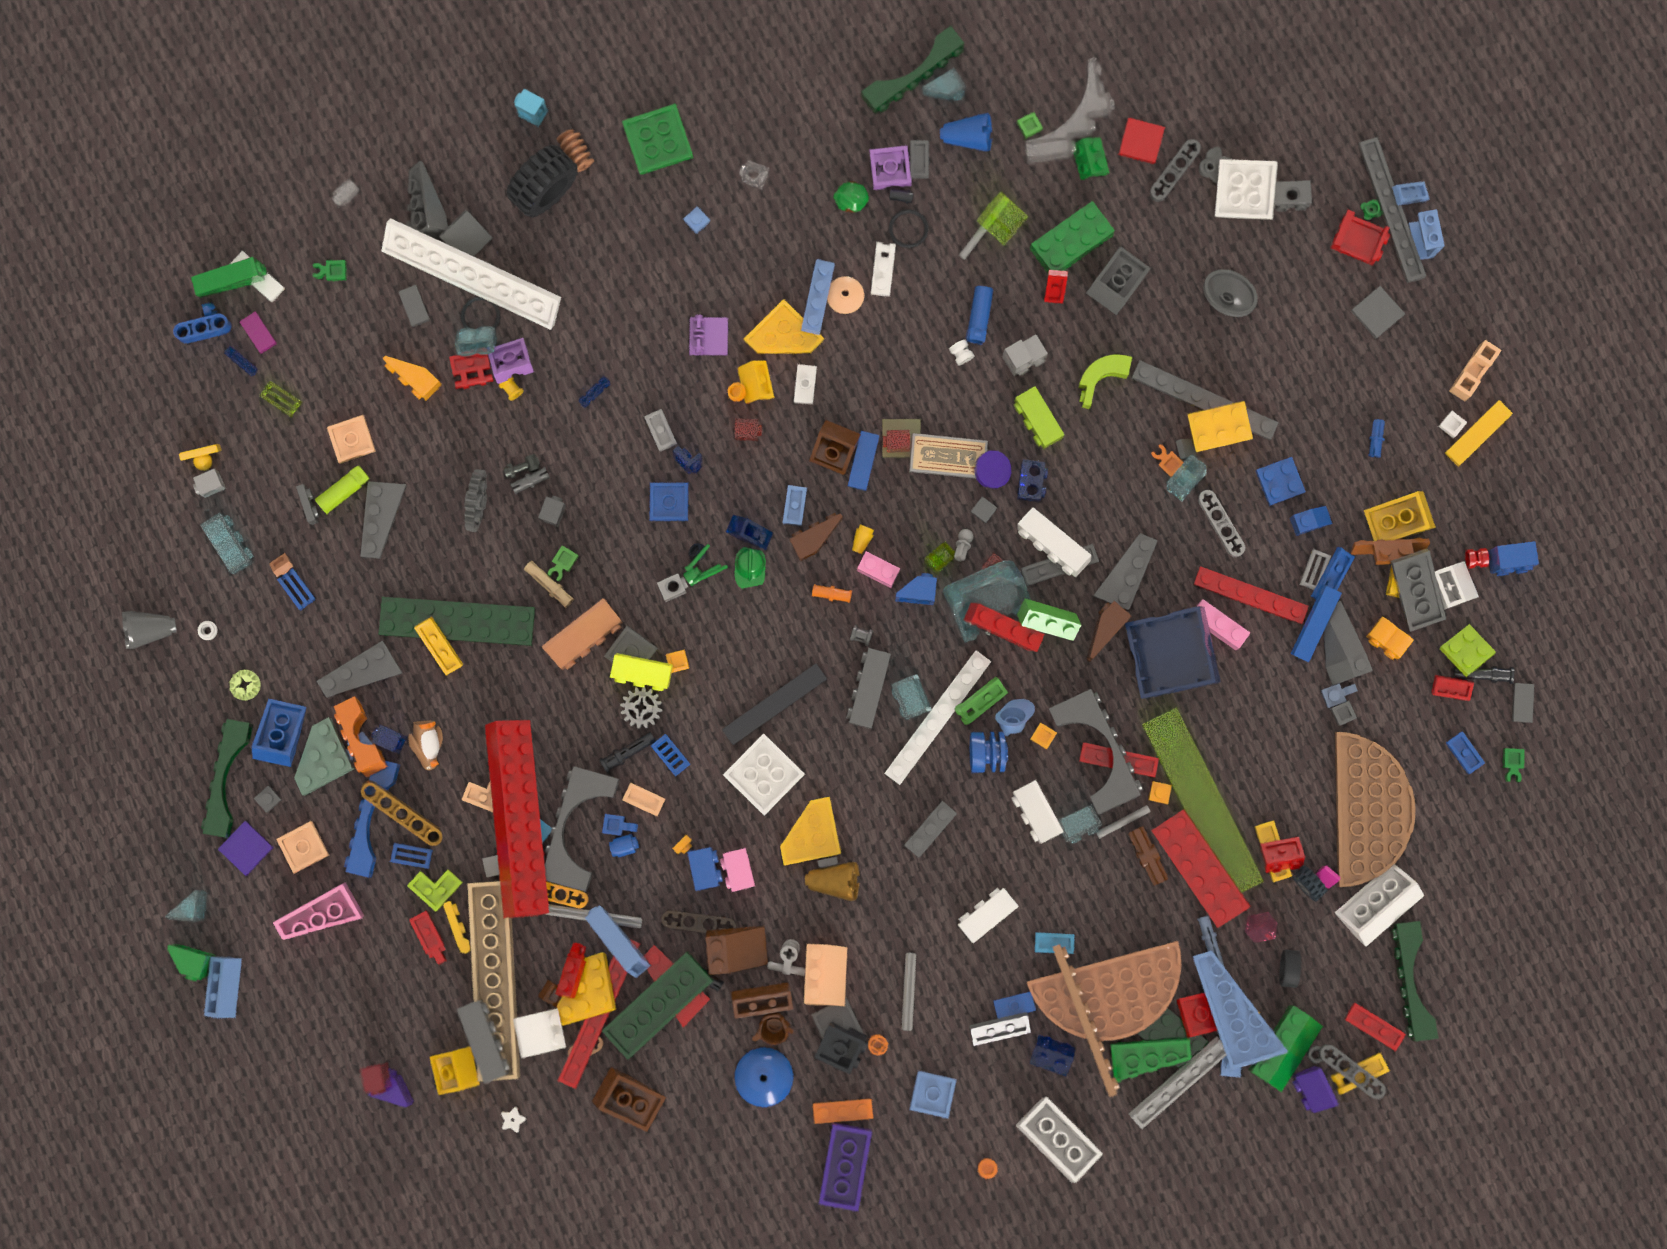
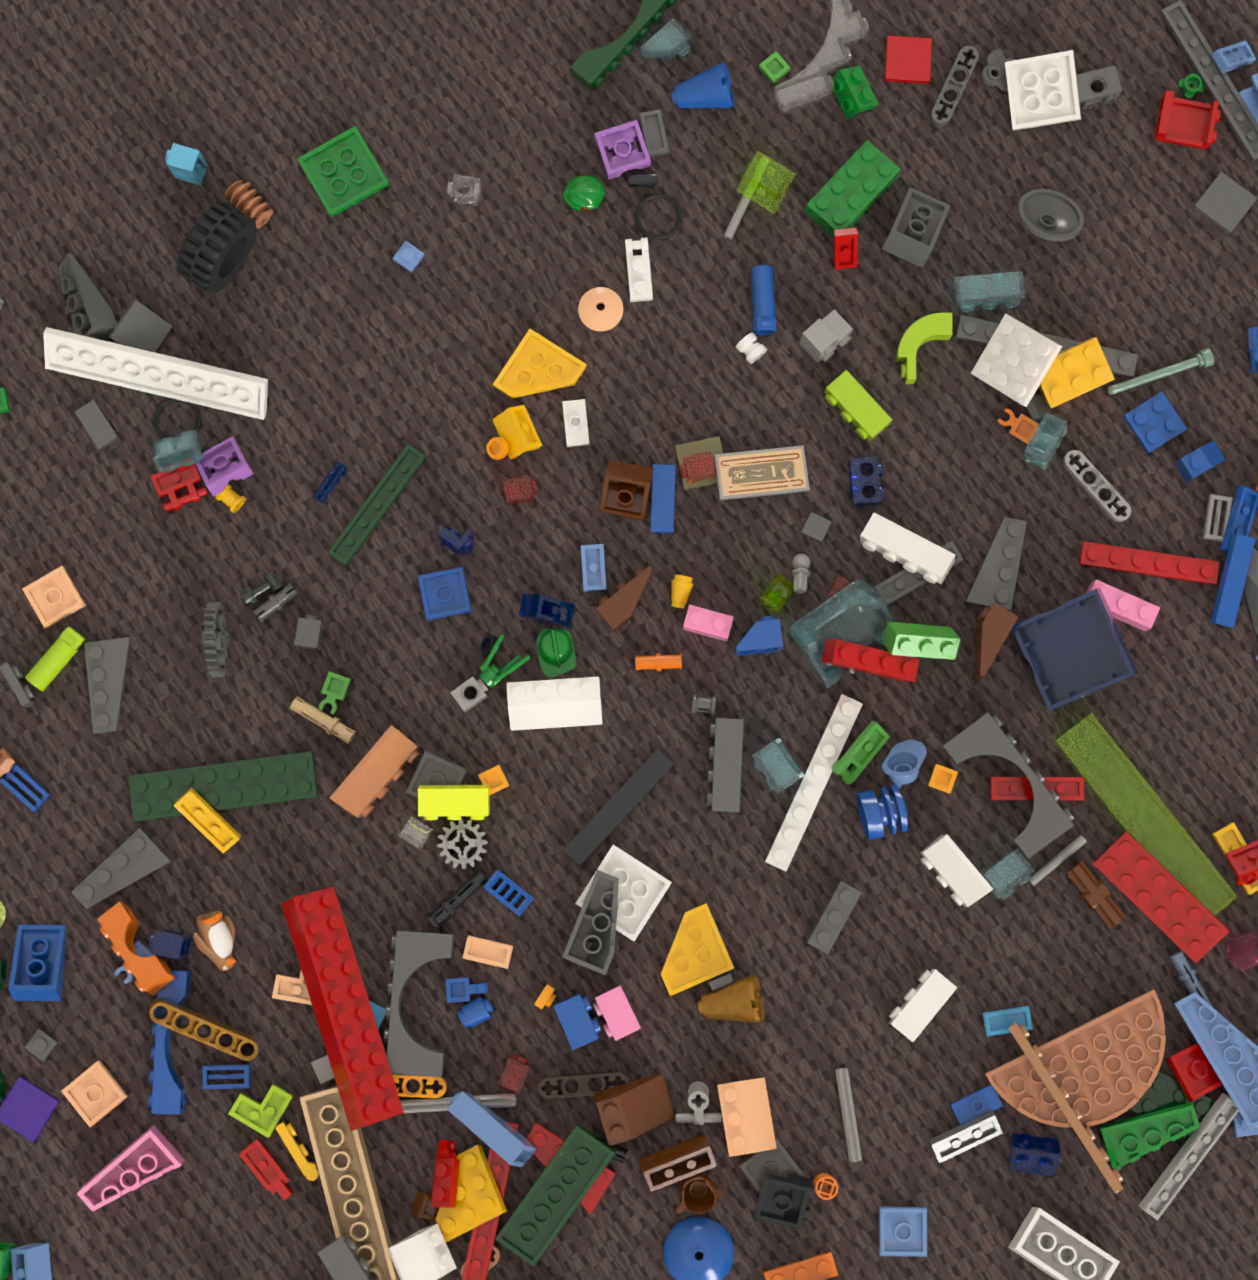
camera: 10 degrees left, 0 degrees up
(322, 758) = (97, 982): sand green plate -> none
(419, 378) = (115, 507): light orange slope -> none
(605, 690) = (416, 832): none -> clear brick
(628, 418) = (377, 505): none -> dark green tile
(645, 901) = (514, 1073): none -> clear red brick
(660, 430) = (417, 511): light grey plate -> none
(708, 336) = (450, 389): medium lavender hinge -> none
(733, 800) = (595, 929): none -> dark grey wedge
(740, 609) = (554, 703): none -> white slope
(817, 297) = (569, 317): medium blue plate -> none
(992, 469) = (816, 477): dark purple tile -> none
(1160, 792) = (1093, 817): light orange plate -> none
(1166, 345) = (988, 291): none -> clear light blue brick
(1175, 406) = (1016, 360): none -> white plate
(1330, 437) = (1203, 358): none -> sand green piece

